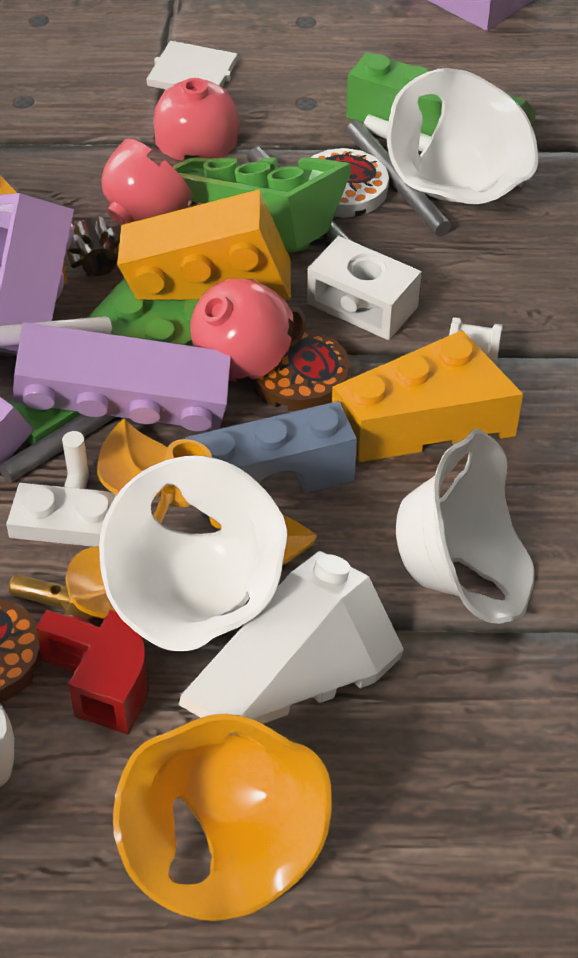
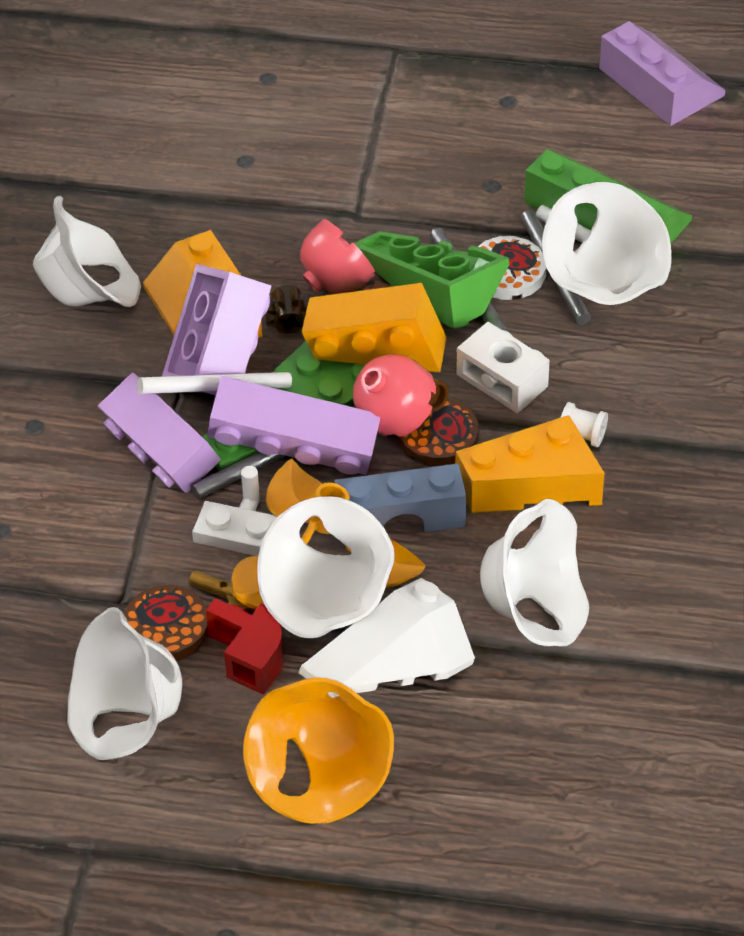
camera: 10 degrees right, 0 degrees up
(188, 61) = (396, 142): white piece -> none
(196, 120) = (390, 198): coral cylinder -> none

